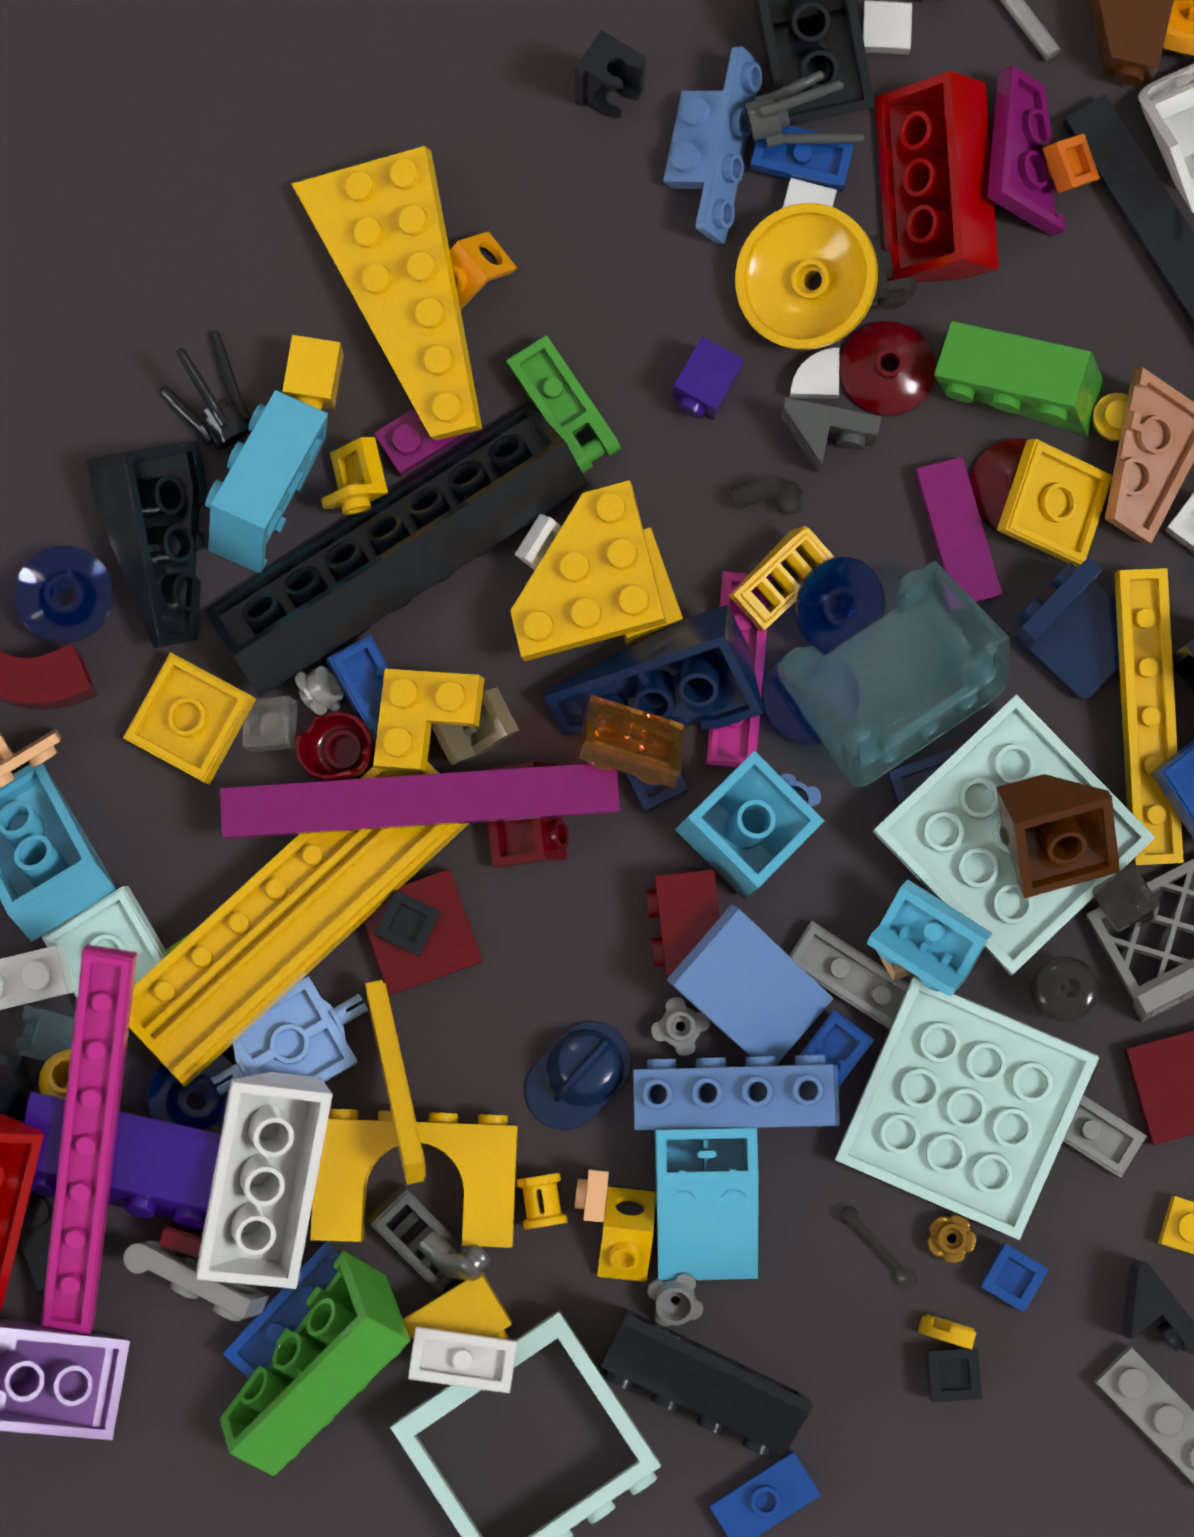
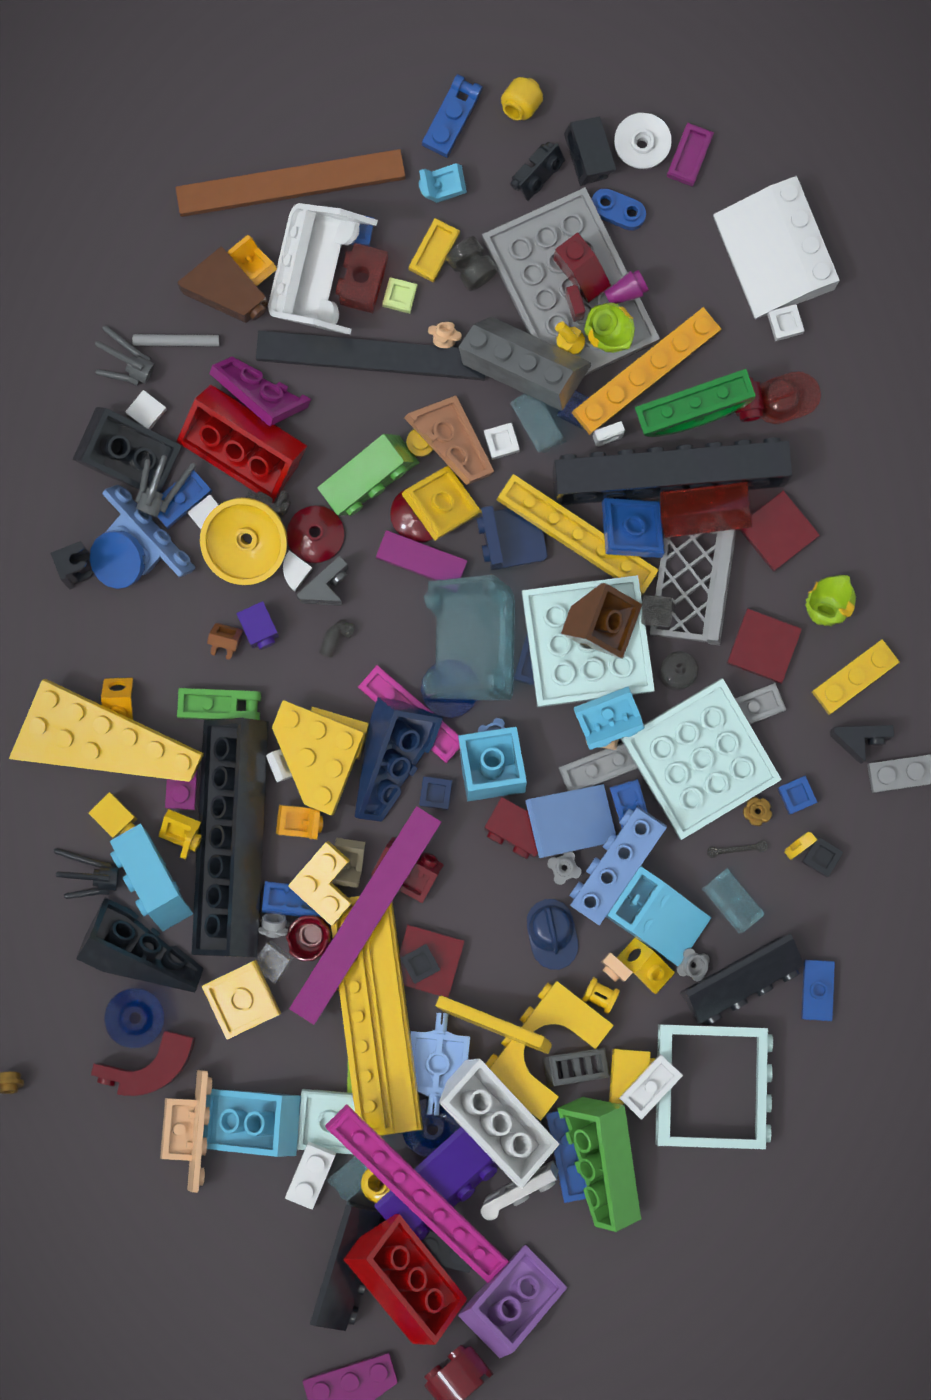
camera: 55 degrees left, 0 degrees up
(182, 1239) = (496, 1183): dark red tile -> none
(453, 1263) = (601, 1059): flat silver arm -> none
(483, 623) = (299, 821): none -> light orange bracket
(631, 742) = (411, 791): clear orange plate -> none
(659, 130) = (117, 559): none -> blue tile
(659, 348) = (224, 637): none -> dark orange tile
(802, 553) = (387, 644): yellow slope -> none
(803, 1293) = (733, 901): none -> clear light blue hinge
(858, 602) = (422, 634): clear blue dish -> none
(1070, 163) = (280, 372): orange plate -> none

